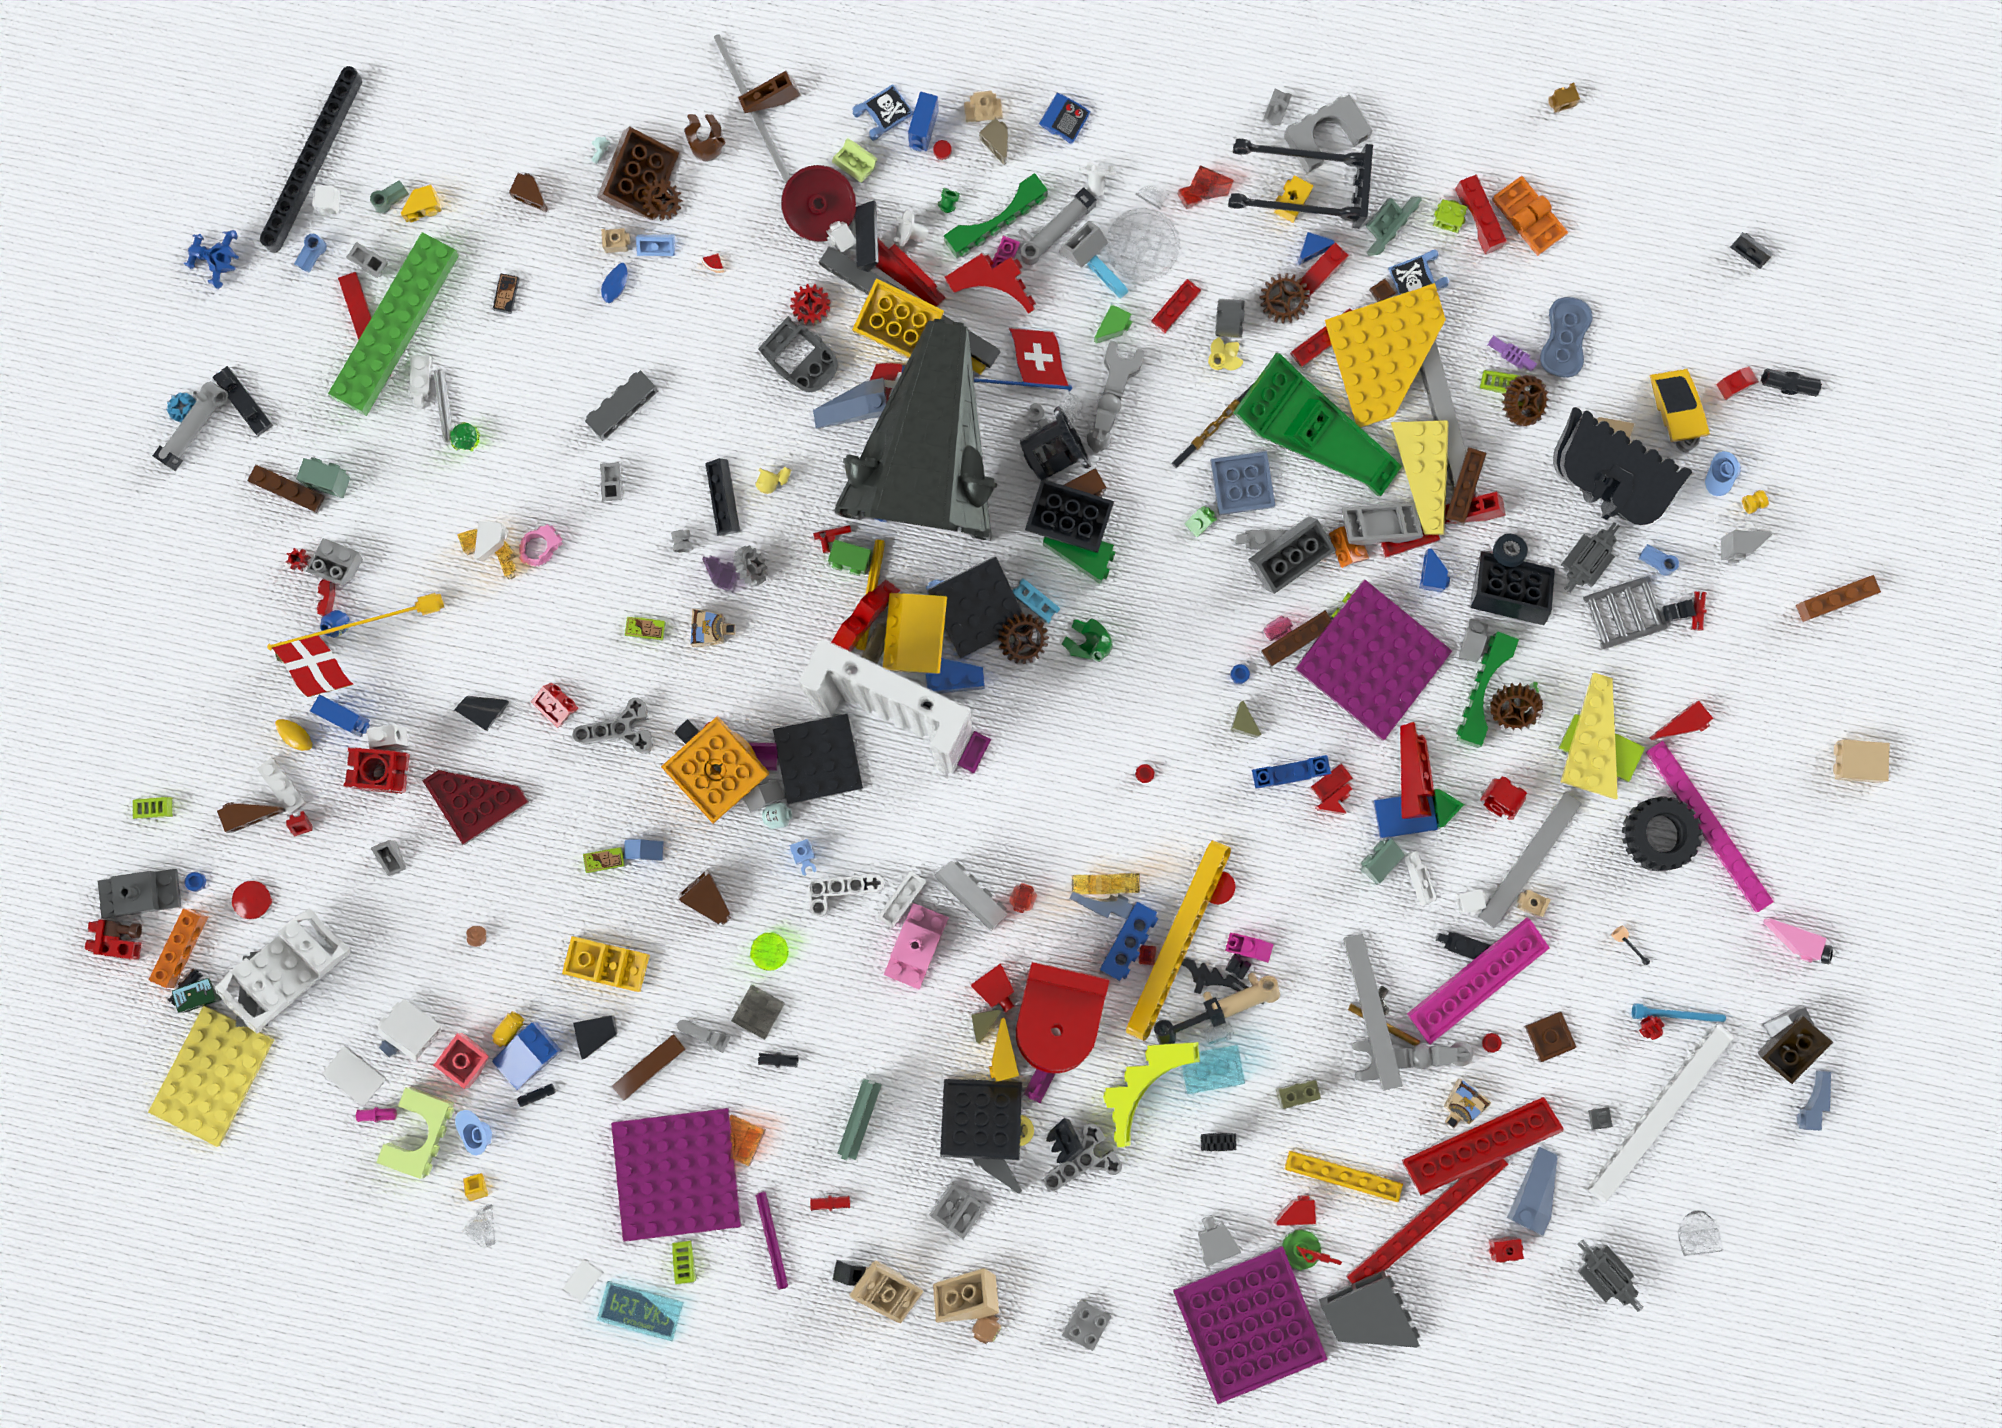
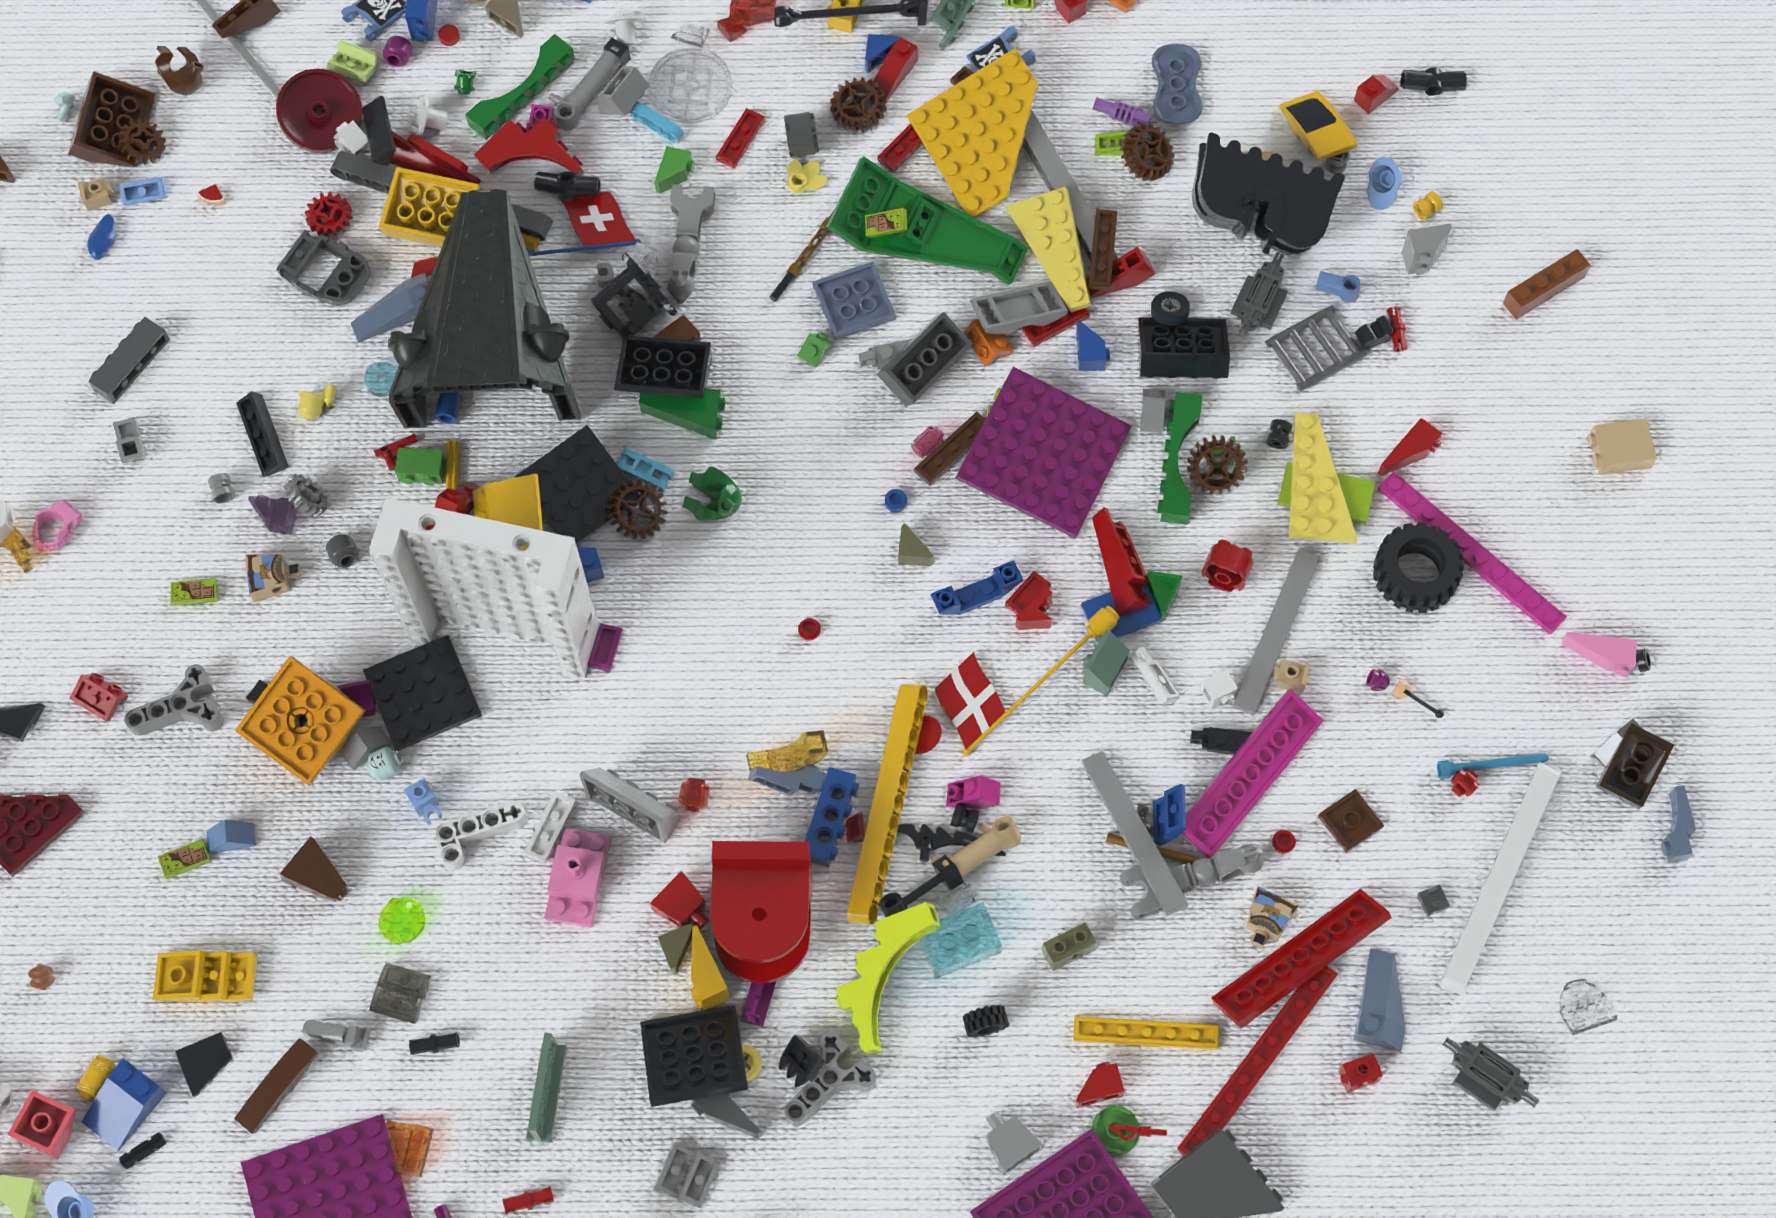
camera: 10 degrees left, 15 degrees down
(772, 620) = (342, 551): none -> dark grey head
(824, 462) = (374, 373): none -> clear light blue piece
(895, 158) = (397, 51): none -> magenta head
(1019, 321) = (567, 184): none -> black piece
(1267, 868) = (974, 702): none -> flag
(1285, 420) = (886, 222): none -> tile
(1404, 1005) = (1169, 815): none -> blue slope
(1575, 686) = (1279, 434): none -> black wheel
(1602, 922) = (1377, 680): none -> magenta plate

